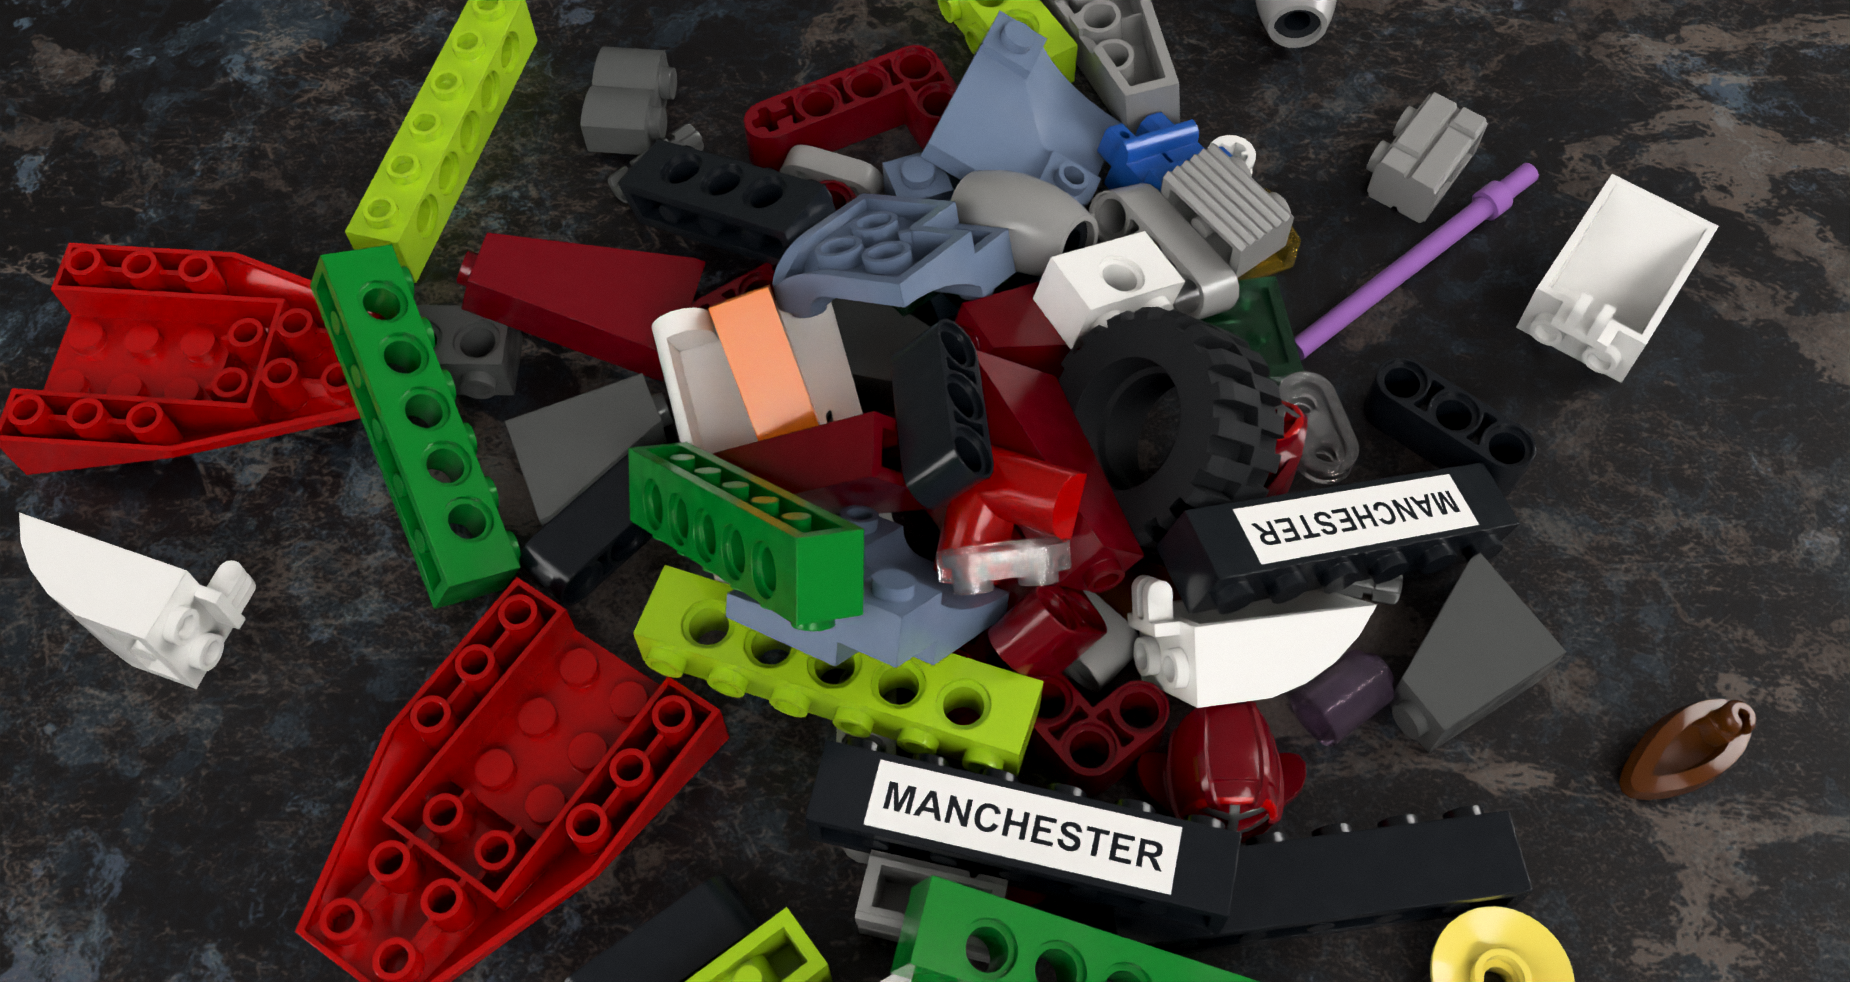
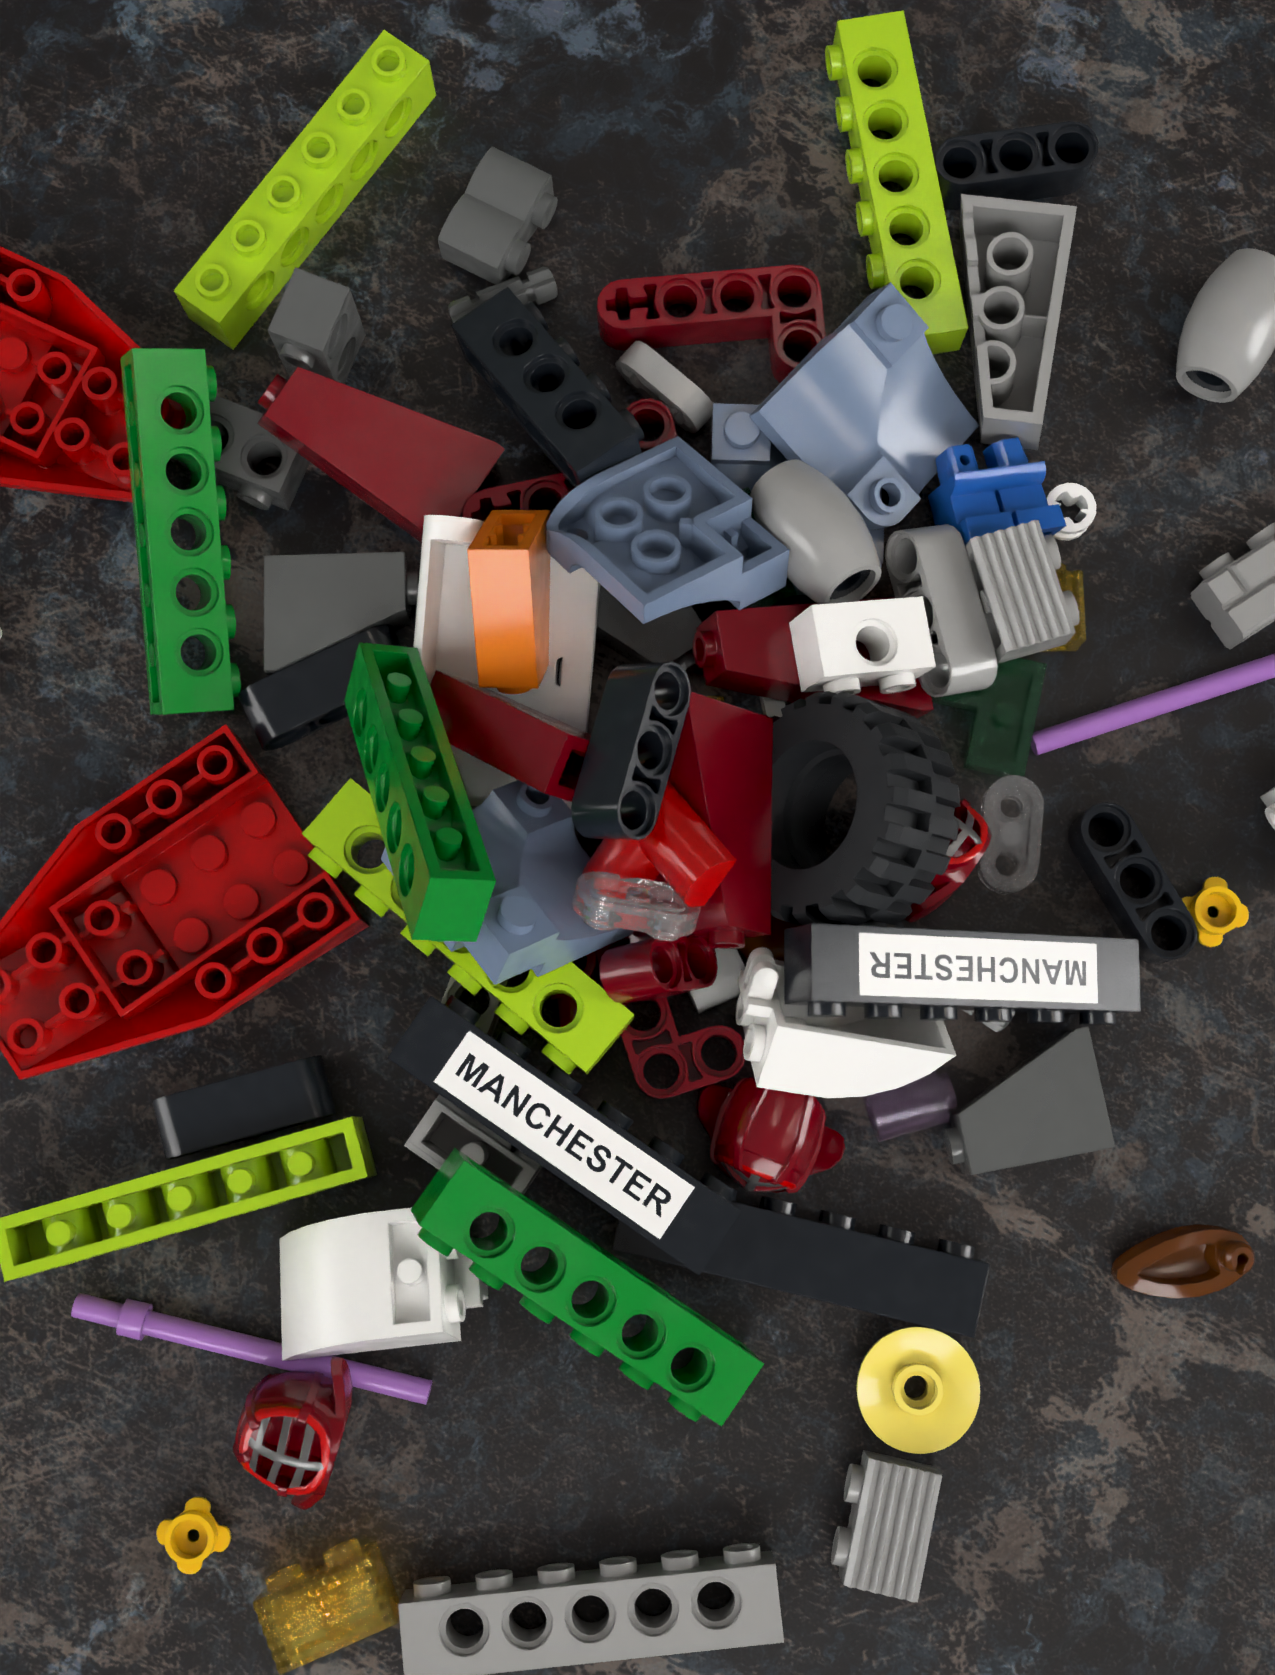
camera: 20 degrees right, 20 degrees up
(490, 201) = (317, 327): none -> dark grey brick
(1543, 419) = (1230, 911): none -> yellow plate

